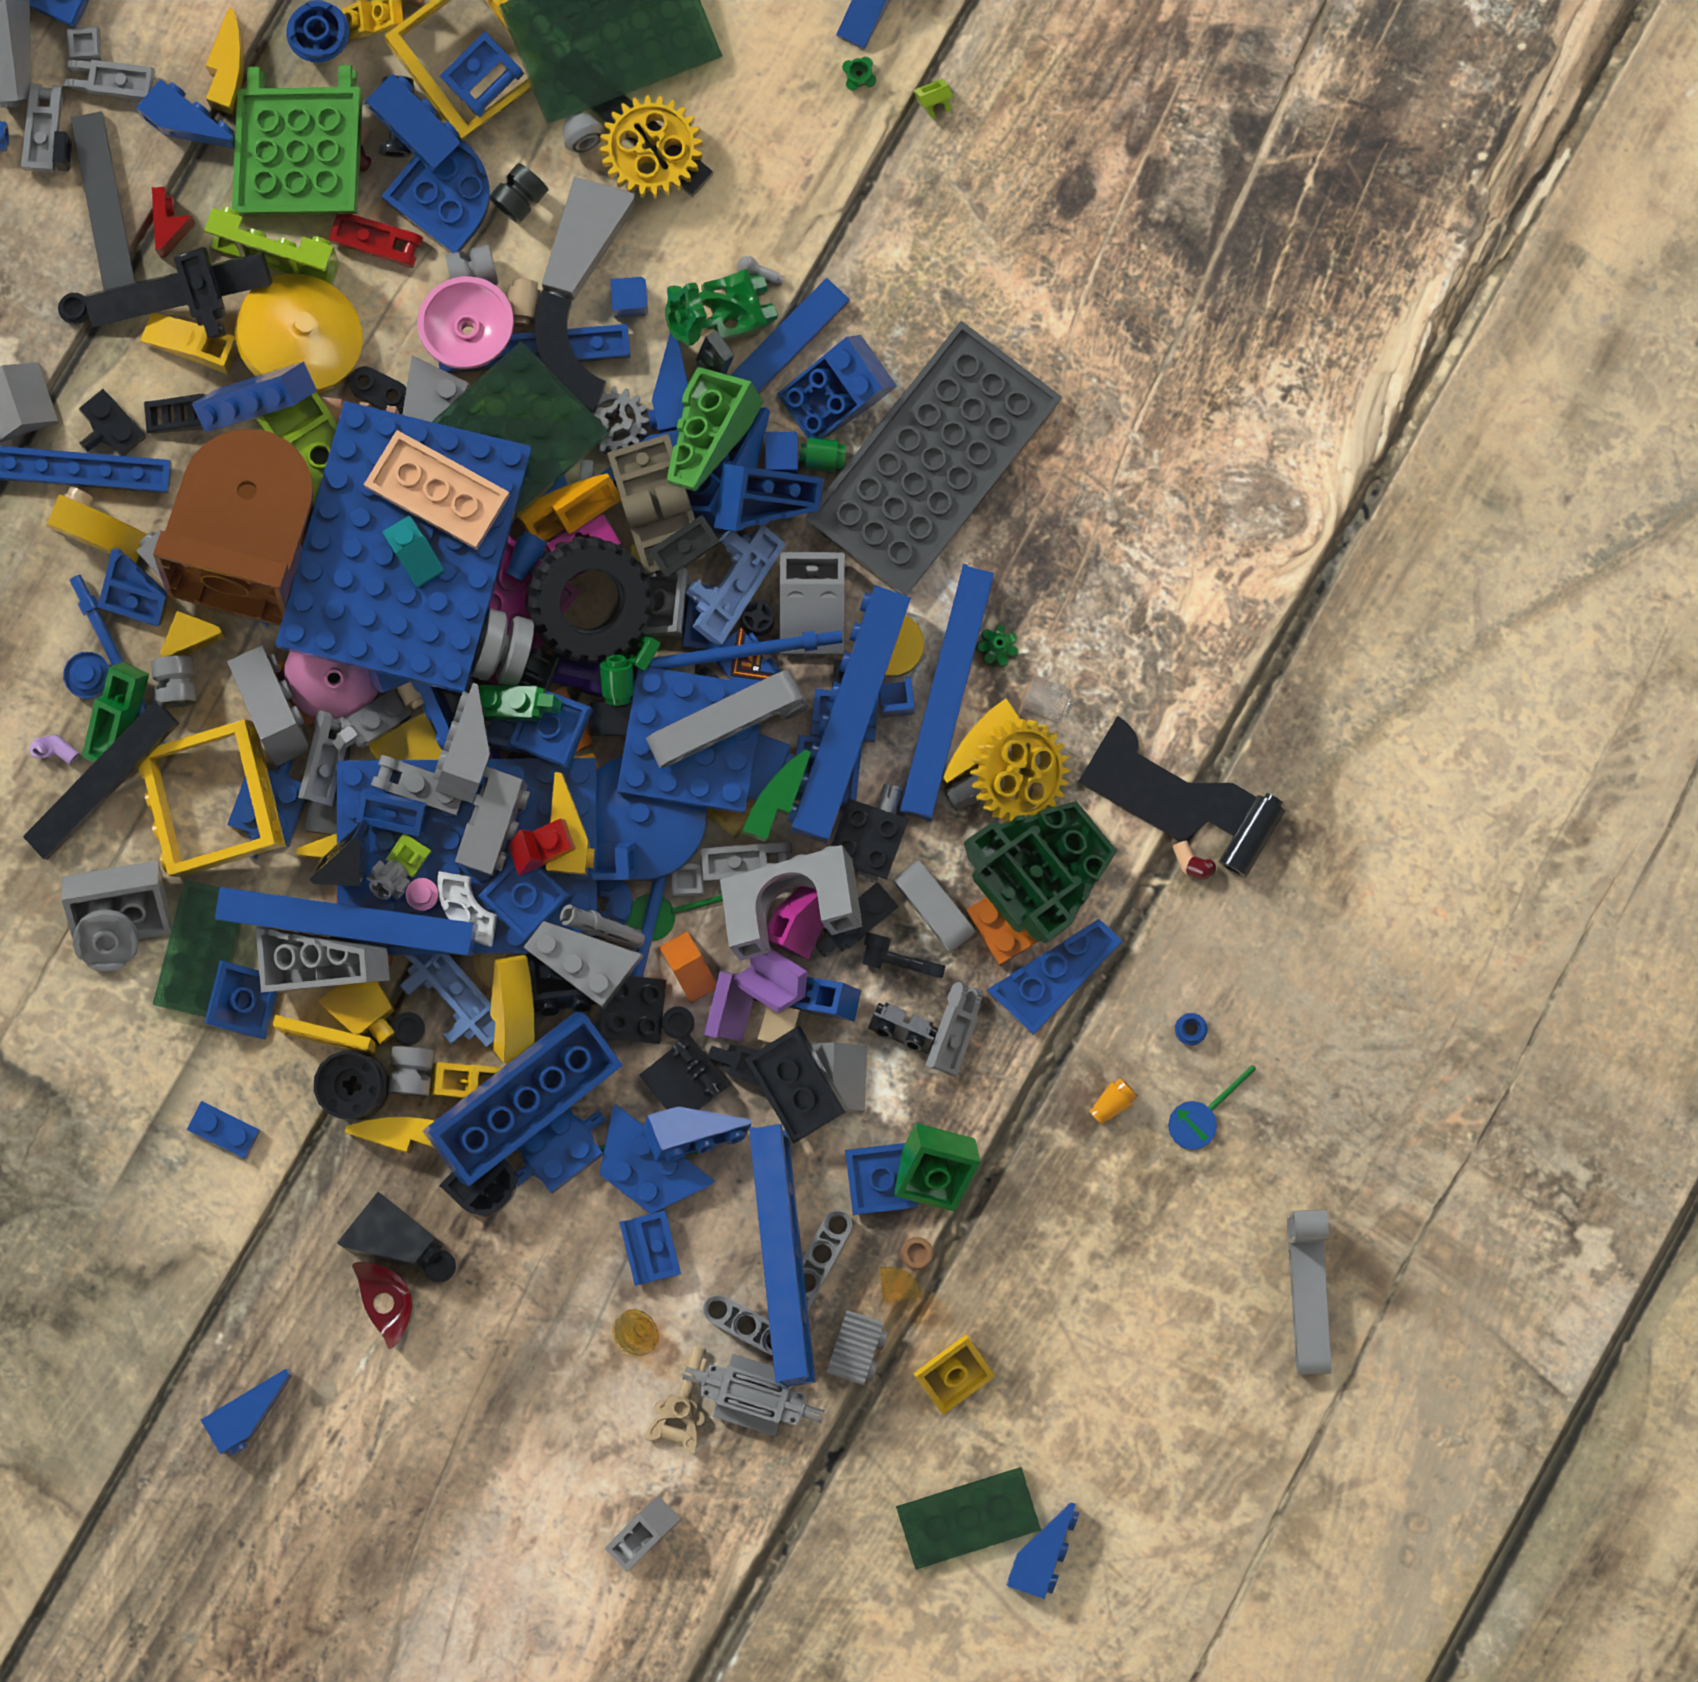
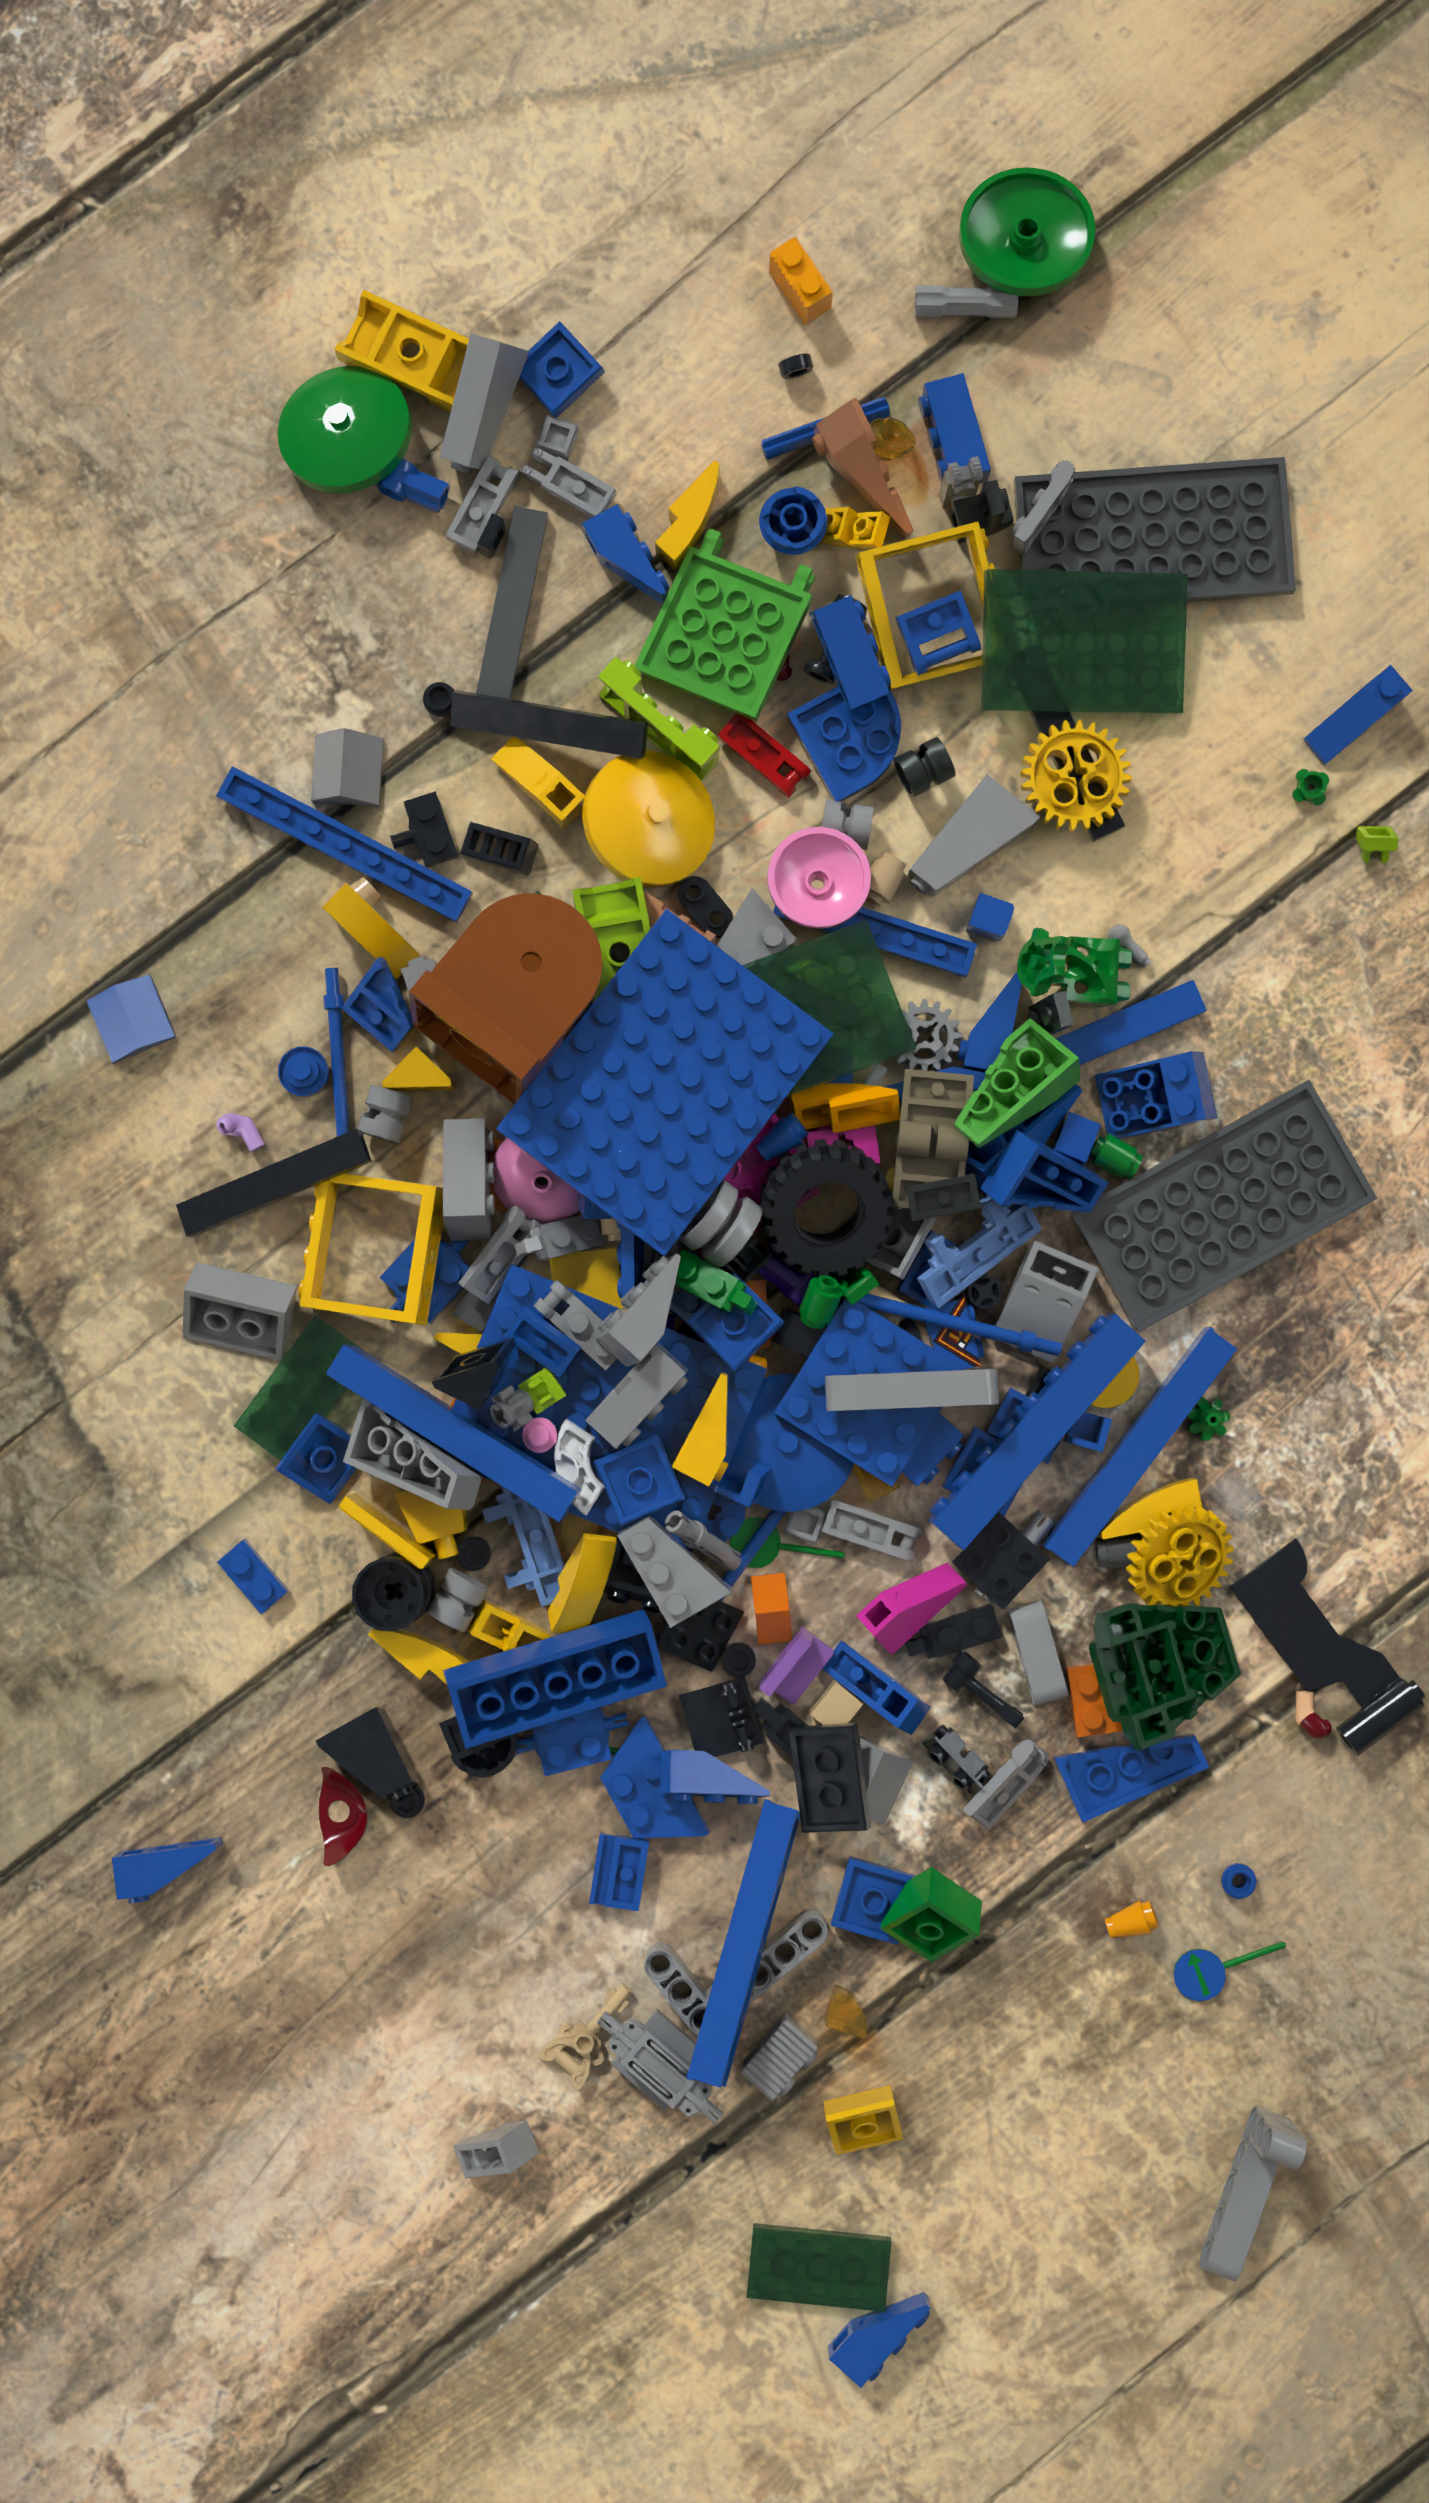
camera: 25 degrees right, 5 degrees up
(105, 940) = (213, 1343): light grey tile -> none
(115, 708) = (316, 1118): green slope -> none
(167, 229) = (563, 659): red slope -> none
(202, 291) = (570, 736): black hinge -> none
(254, 397) = (579, 866): blue brick -> none
(413, 551) = (672, 1093): teal slope -> none
(436, 490) = (721, 1040): light nougat plate -> none
(541, 846) = (676, 1442): red slope -> none
(556, 352) = (896, 945): black tile -> none
(582, 132) = (1012, 732): light grey cone -> none
(635, 1333) = (570, 1951): clear yellow plate -> none
(751, 893) = (862, 1568): light grey arch -> none
(773, 980) = (849, 1662): medium lavender panel -> none
(776, 797) = (930, 1484): green slope -> none
(916, 1253) = (877, 1986): medium nougat tile -> none

